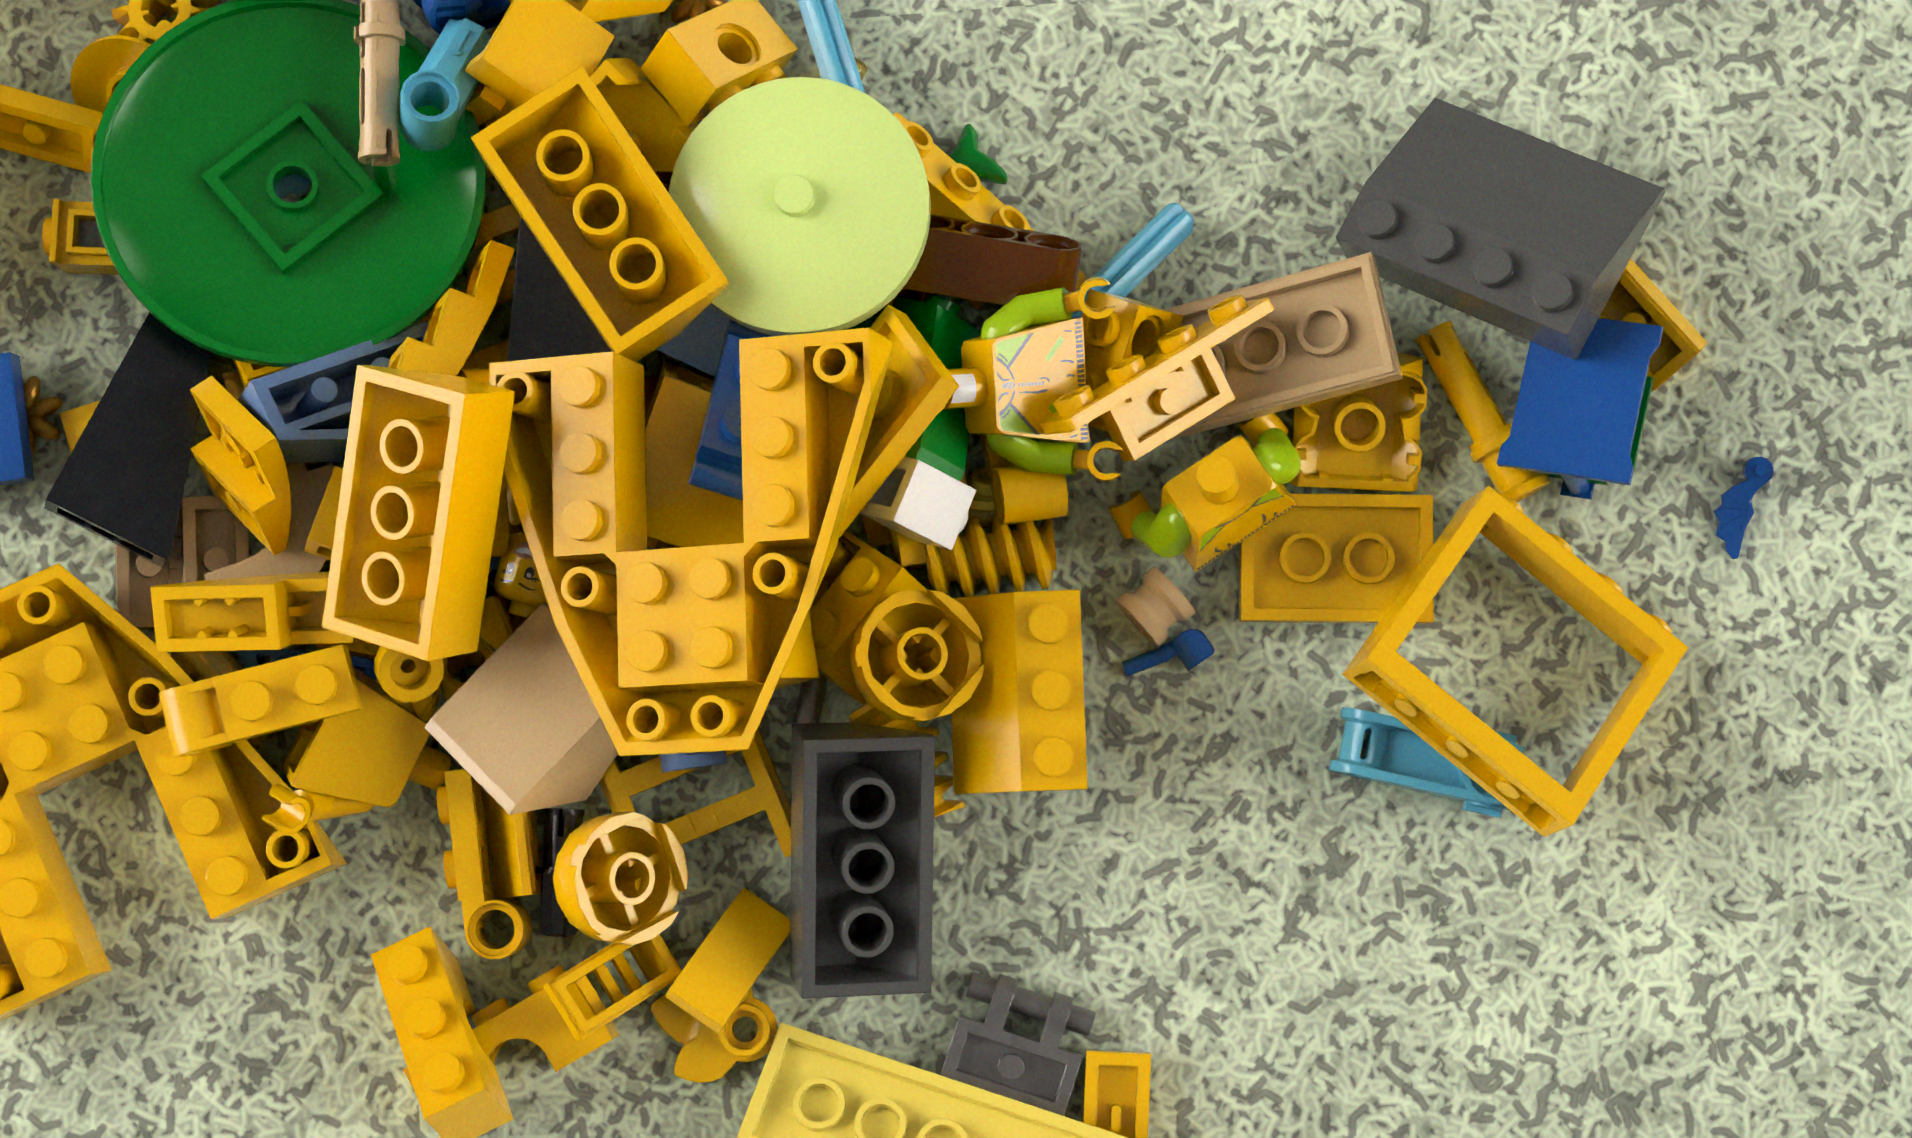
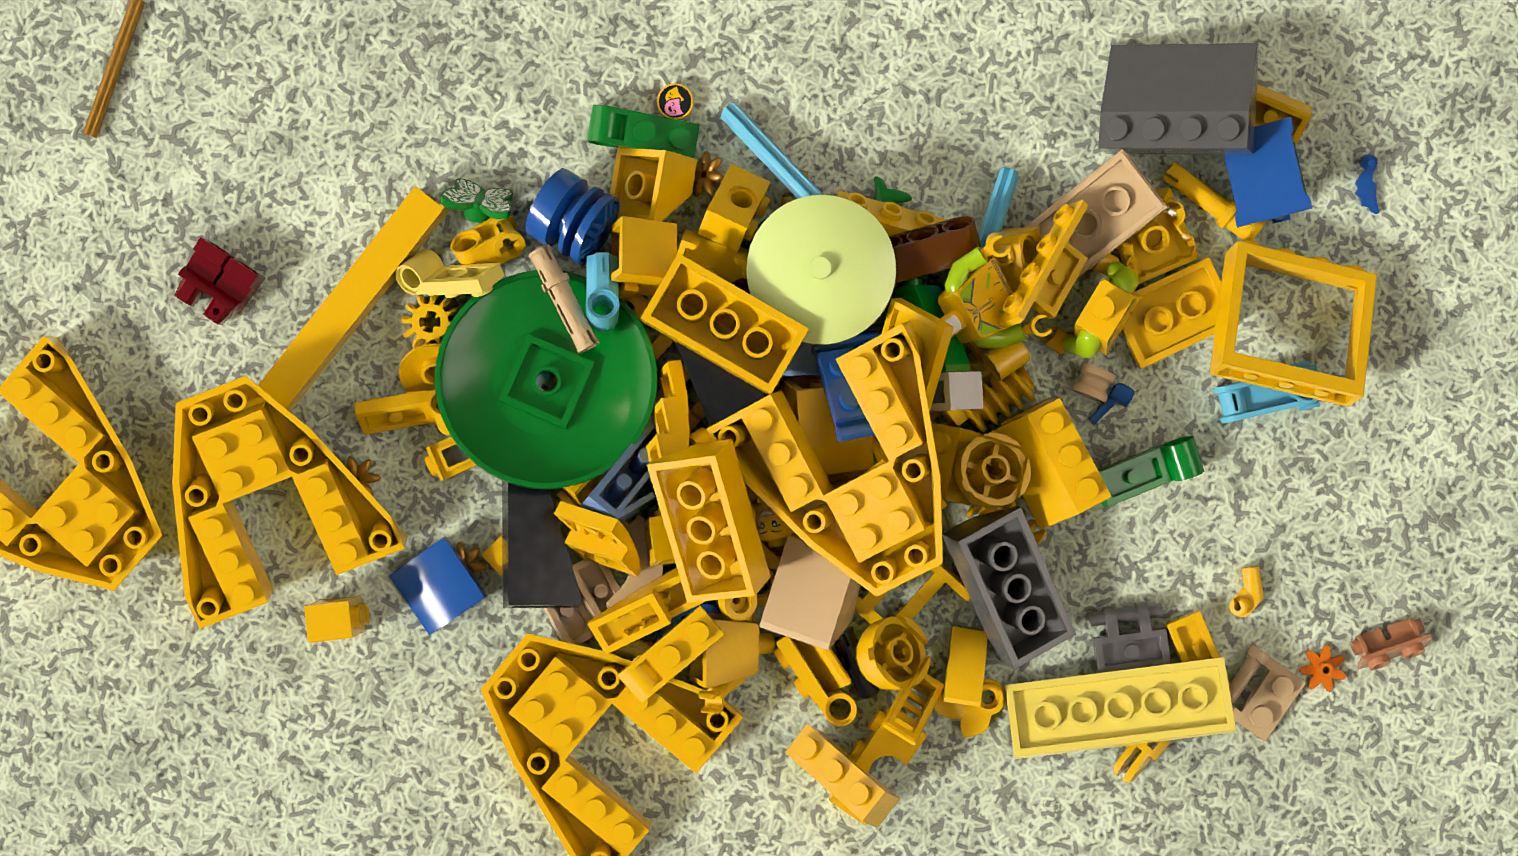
camera: 25 degrees left, 5 degrees up
(1177, 788) = (1151, 468): none -> green plate
(1246, 1070) = (1250, 594): none -> yellow arm

